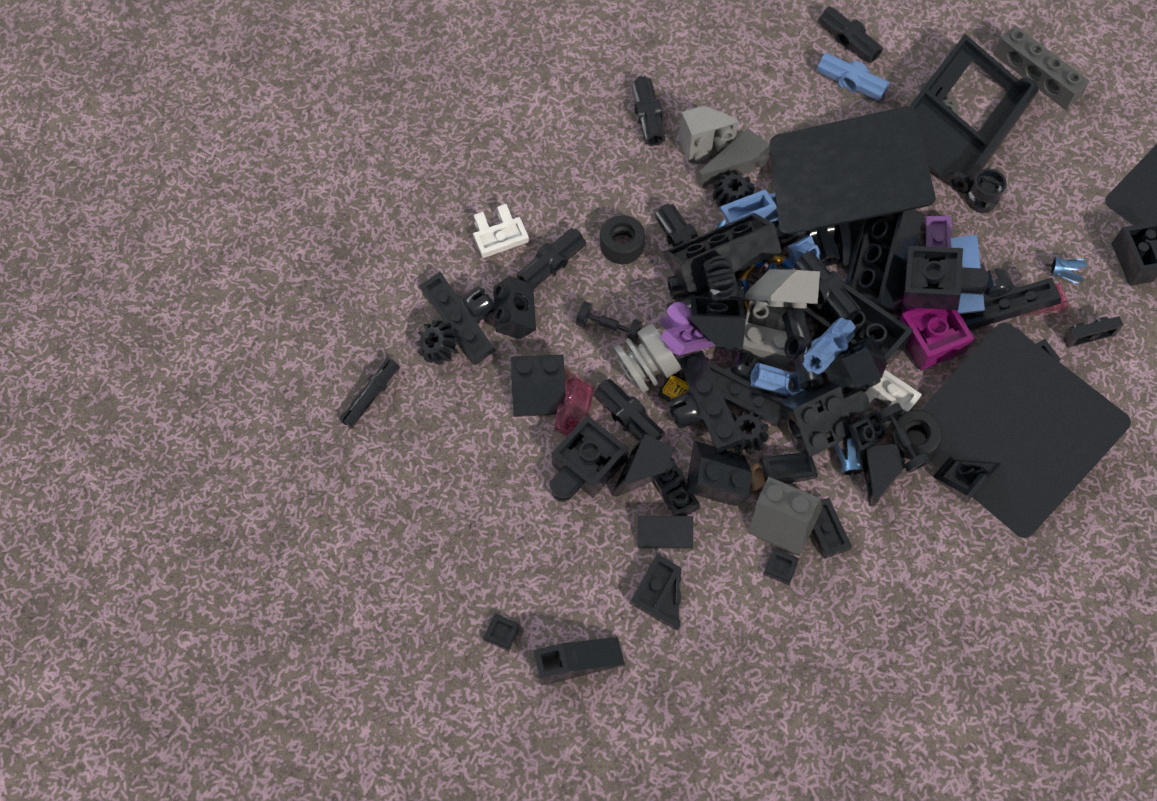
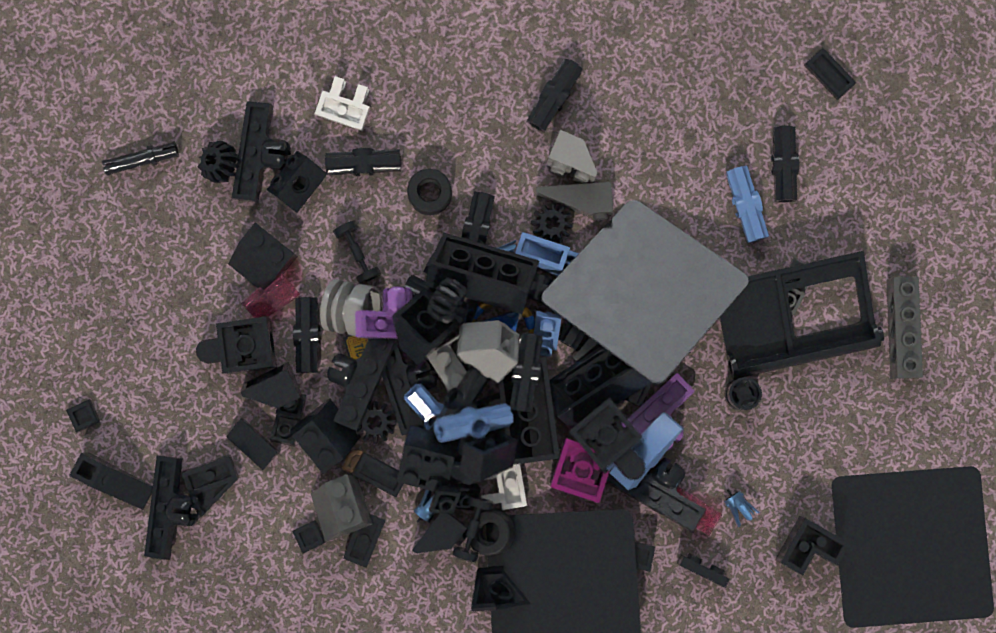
camera: 40 degrees right, 20 degrees up
(646, 641) = (167, 508): none -> black plate

